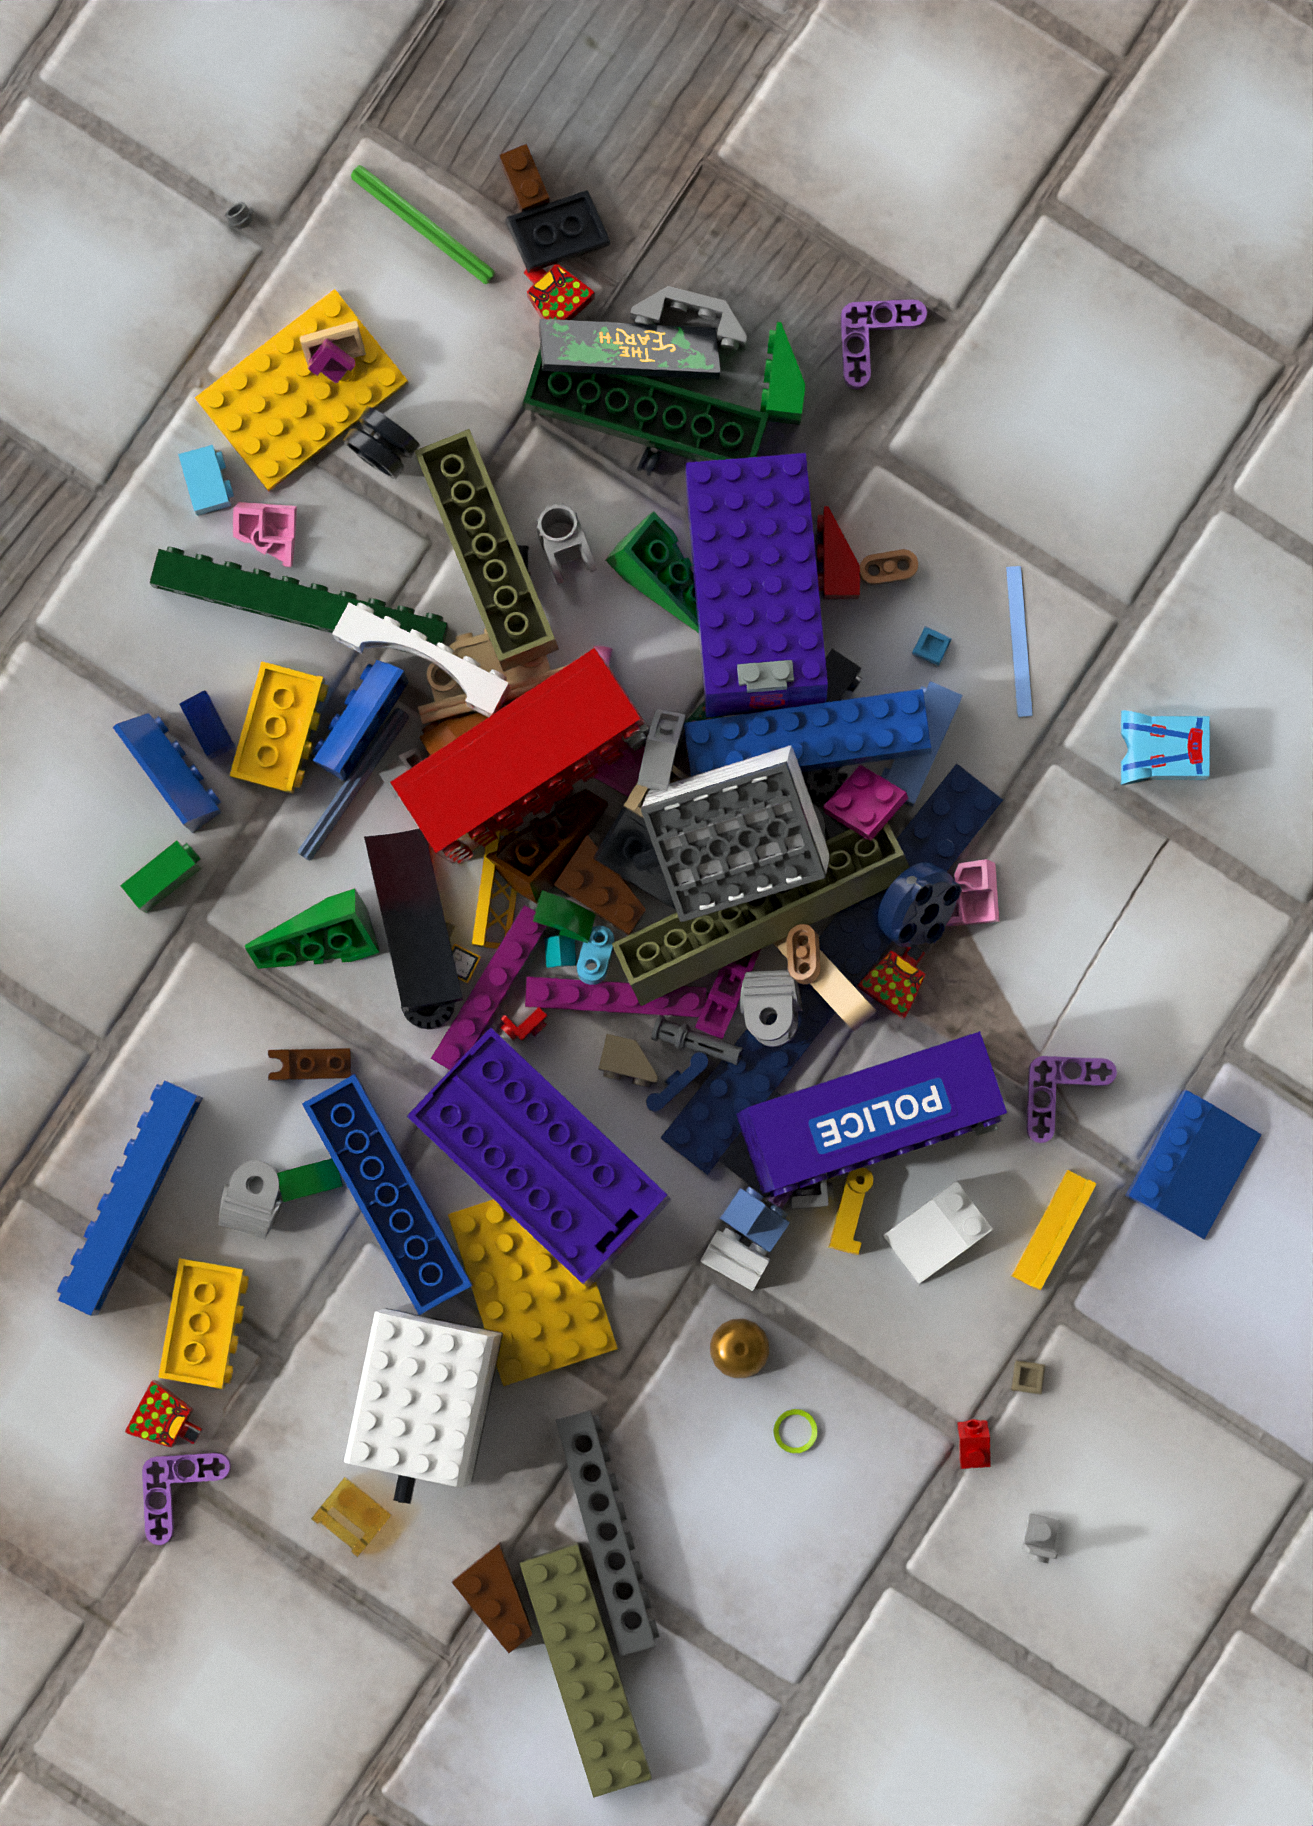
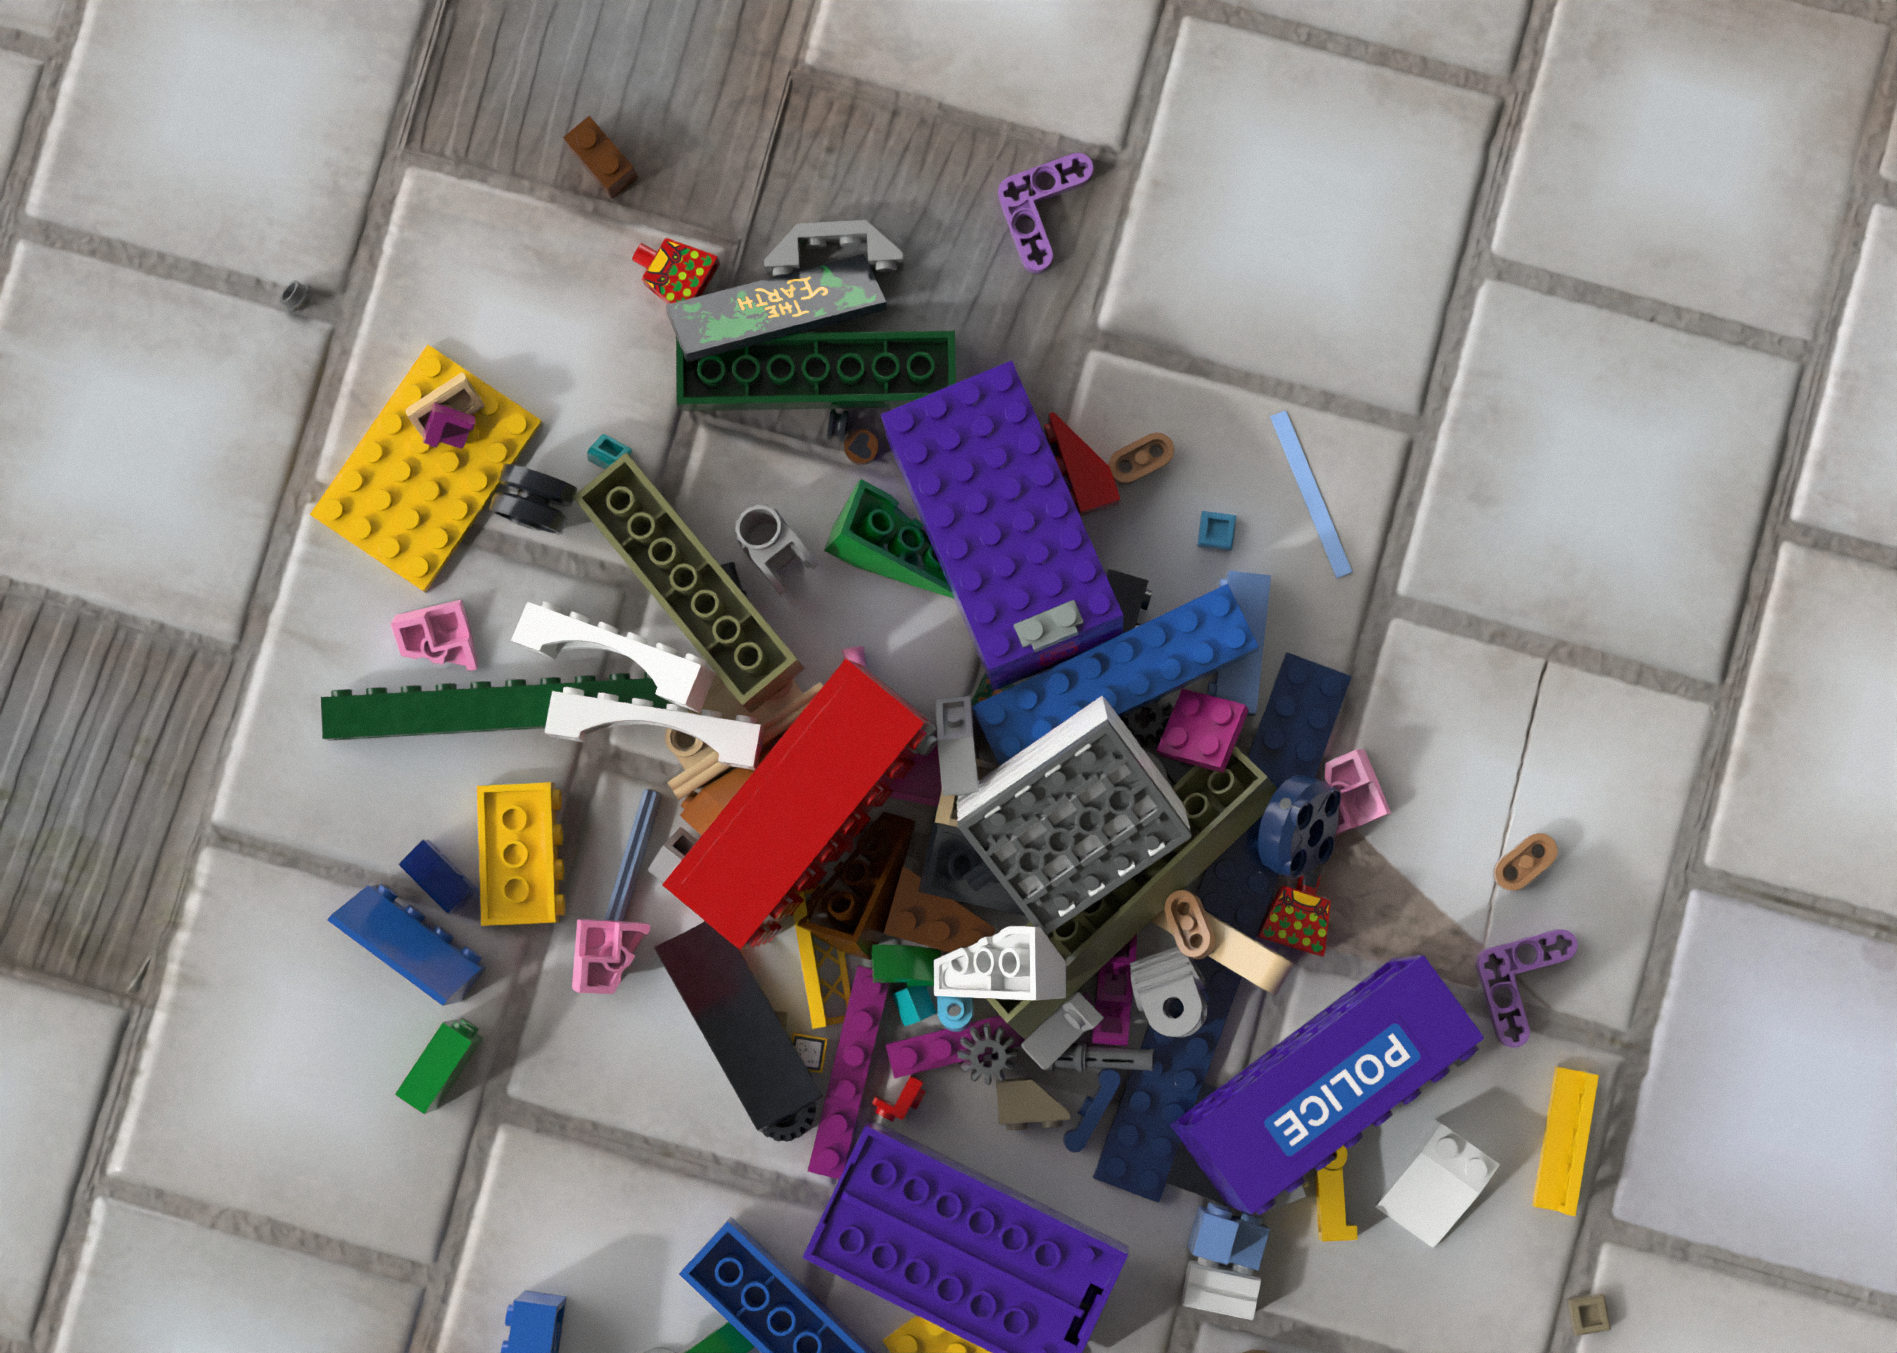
camera: 15 degrees left, 0 degrees up
(205, 479) = (350, 602): medium azure brick -> none
(311, 1064) = (675, 1220): reddish brown plate -> none
(322, 828) = (603, 953): none -> bright pink slope
(328, 930) = (646, 1063): green wedge -> none
(361, 556) = (677, 679): none -> white arch
(361, 719) = (608, 817): blue slope -> none
(422, 224) = (503, 242): bright green axle -> none
(453, 423) = (606, 451): none -> teal slope
(557, 231) = (655, 202): black tile -> none
(612, 1016) = (996, 1061): none -> dark grey gear
(644, 938) = (1008, 965): none -> white wedge
(662, 485) = (861, 447): none -> reddish brown tile
(672, 1008) = (1061, 1030): none -> light grey bracket
(786, 385) = (964, 292): green slope -> none
(1095, 995) = (1524, 862): none -> medium nougat plate
(1165, 747) = (1513, 561): medium azure piece -> none
(1193, 1164) = (1693, 1016): blue slope -> none

